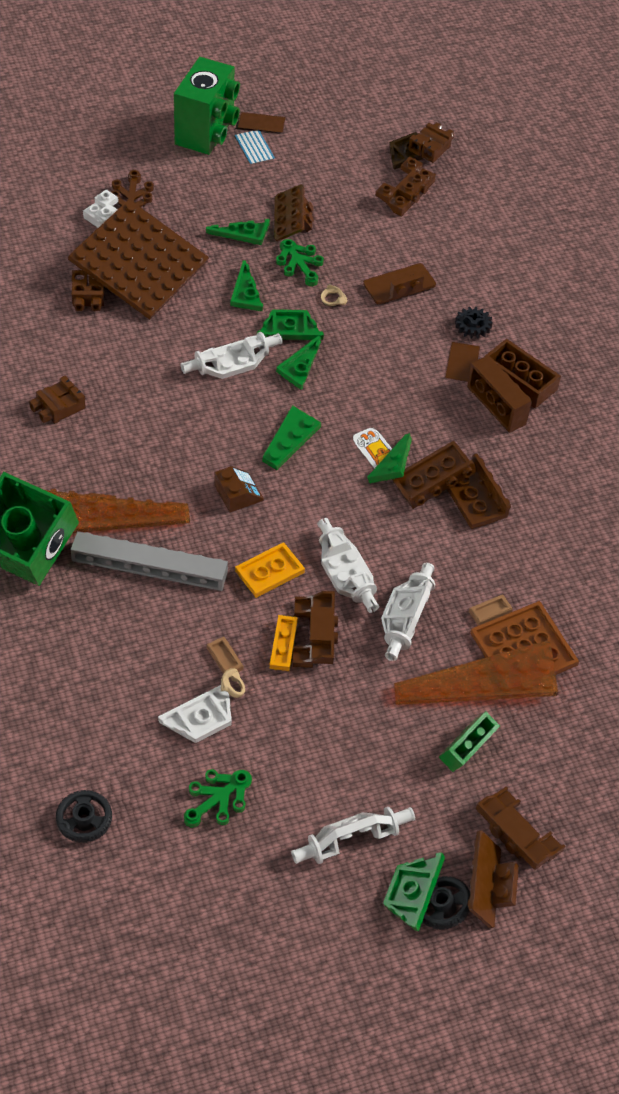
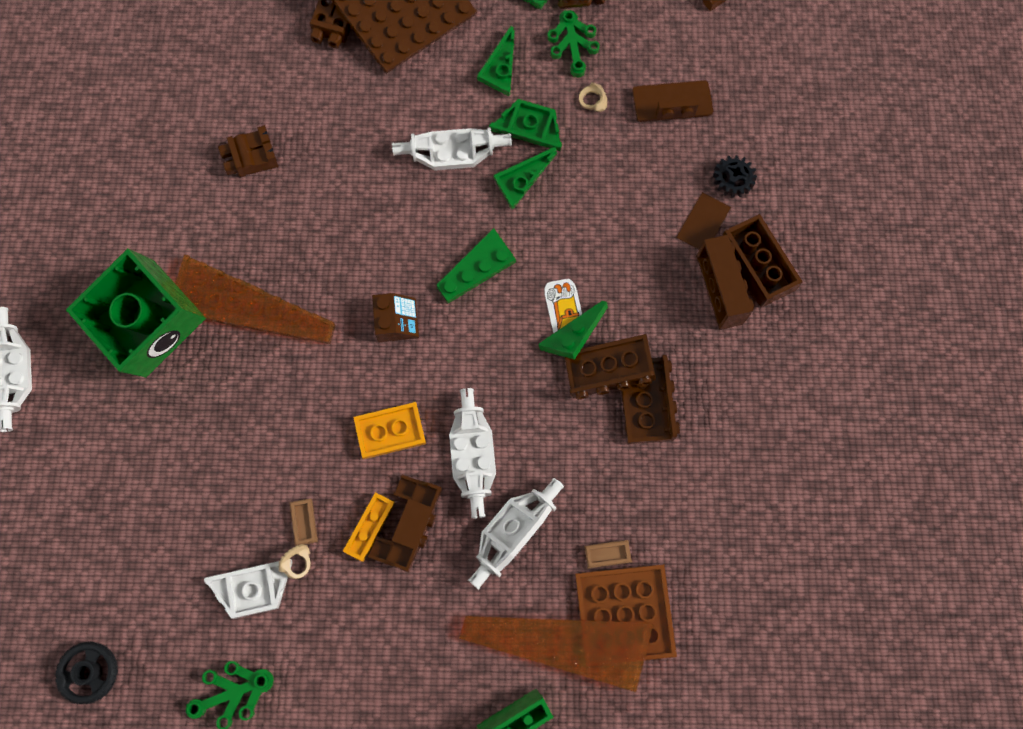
camera: 20 degrees right, 20 degrees up
(149, 561) = (268, 381): light grey brick -> none

